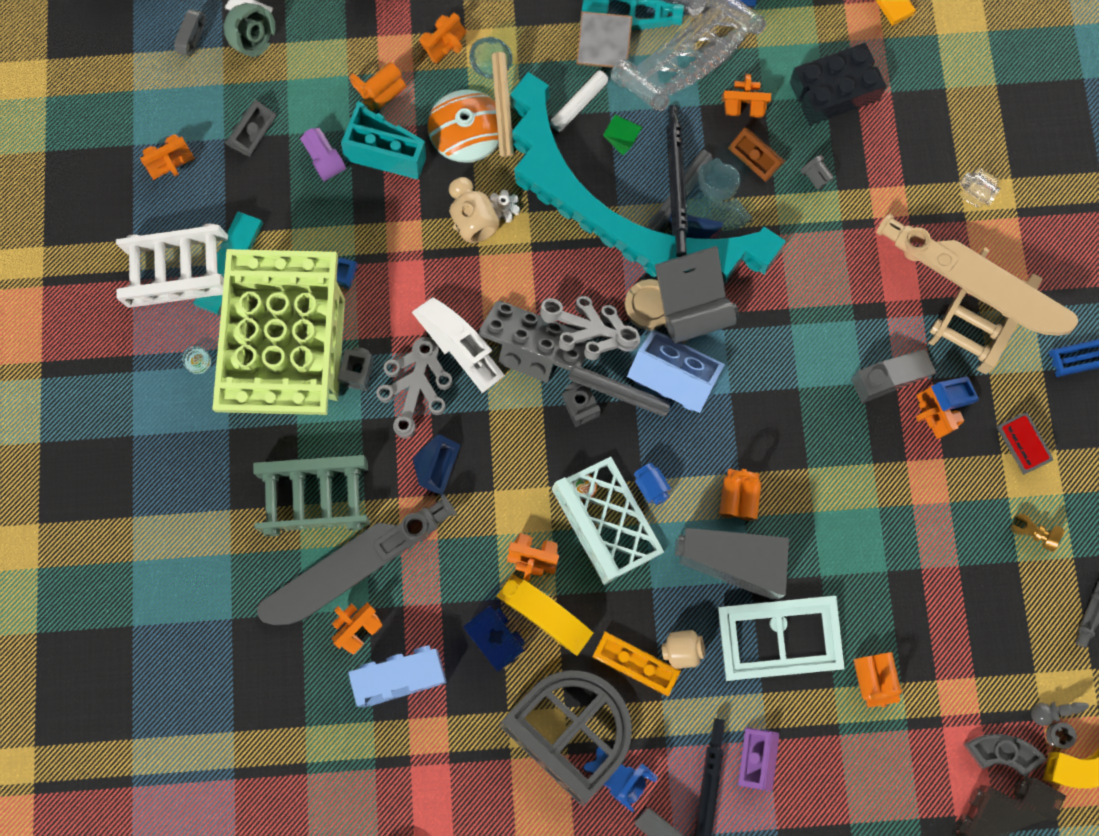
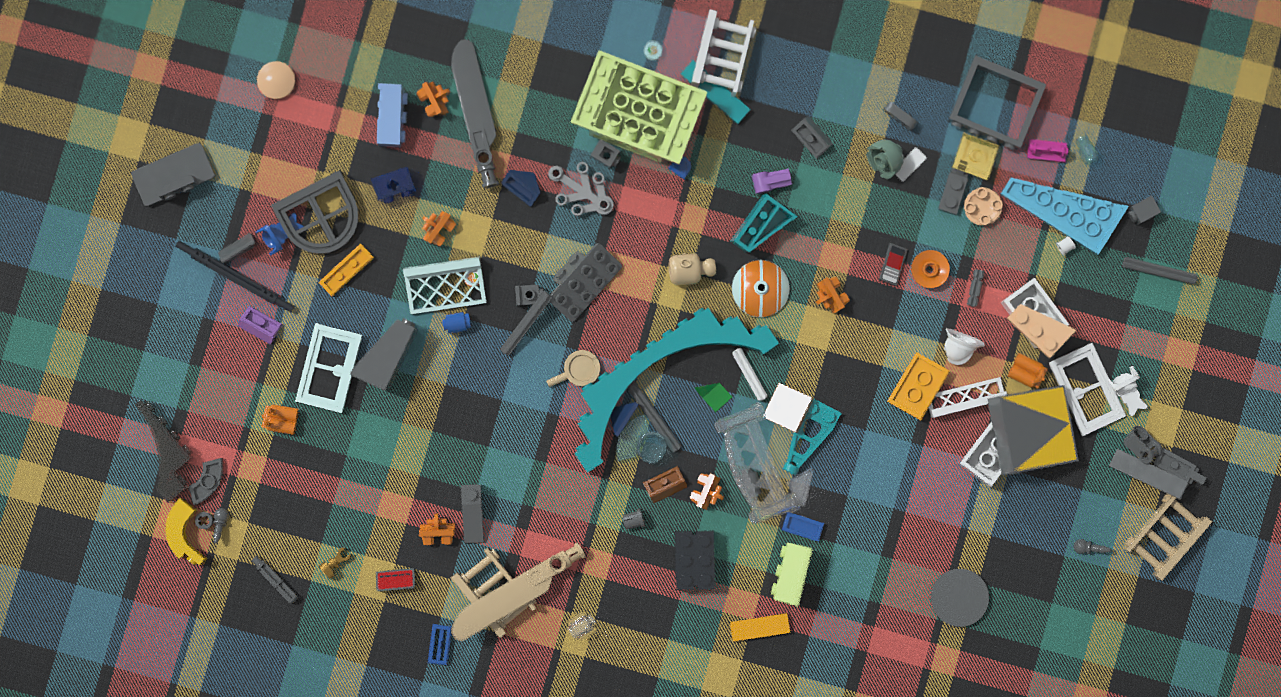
camera: 105 degrees right, 10 degrees up
(167, 157) = (805, 73): orange hips -> none
(297, 471) = (547, 93): sand green fence -> none
(379, 88) = (806, 236): orange piece -> none
(462, 341) = (599, 229): white slope -> none
(481, 55) = (800, 321): clear light blue hair -> none
(502, 104) = (761, 317): tan axle -> none
(505, 205) = (690, 298): white plant -> none
(545, 614) = (396, 220): yellow arch -> none
(619, 337) = (575, 321): light grey plant -> none
(675, 371) = (528, 367): light blue slope -> none
(677, 181) = (661, 417): black axle -> none
(683, 649) = (343, 302): tan head -> none
(694, 298) = (570, 396): dark grey door -> none
(740, 495) = (429, 378): orange piece -> none
(955, 393) = (443, 545): blue tile -> none

